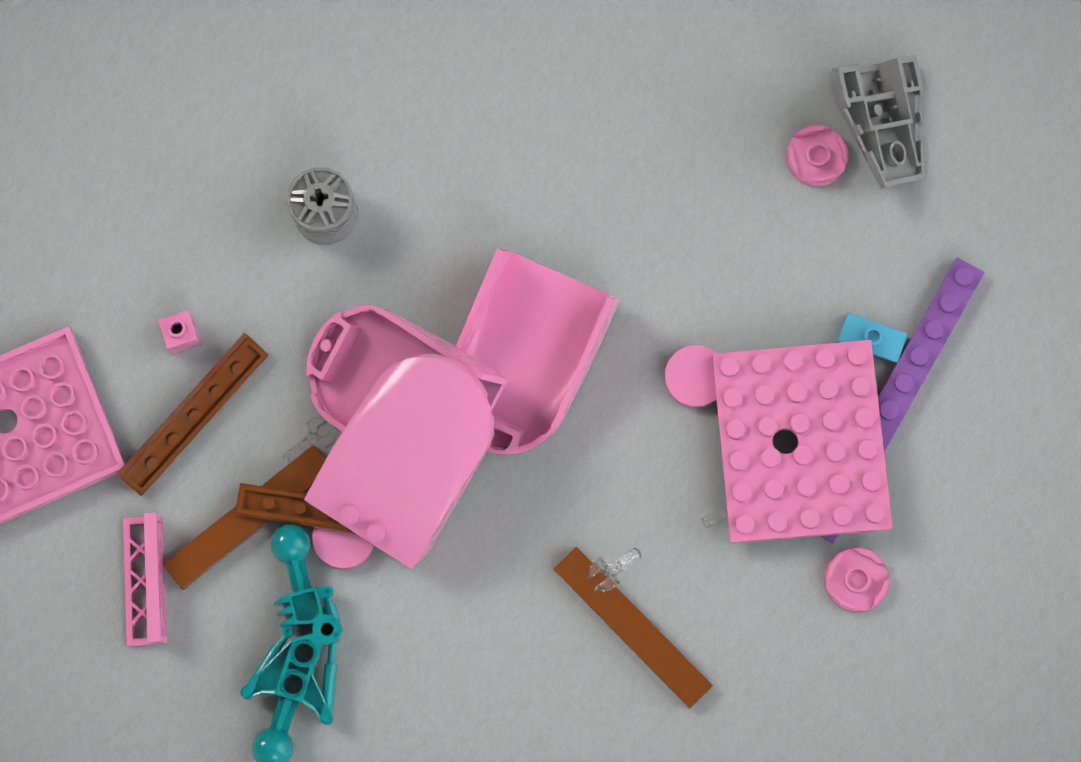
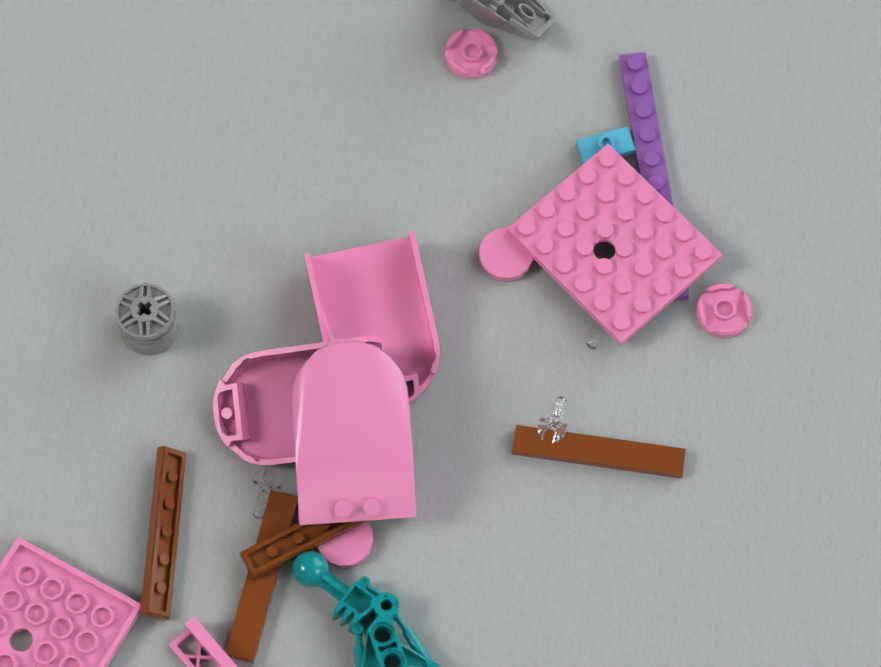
camera: 45 degrees left, 10 degrees down
(186, 338) = (106, 491): bright pink plate -> none

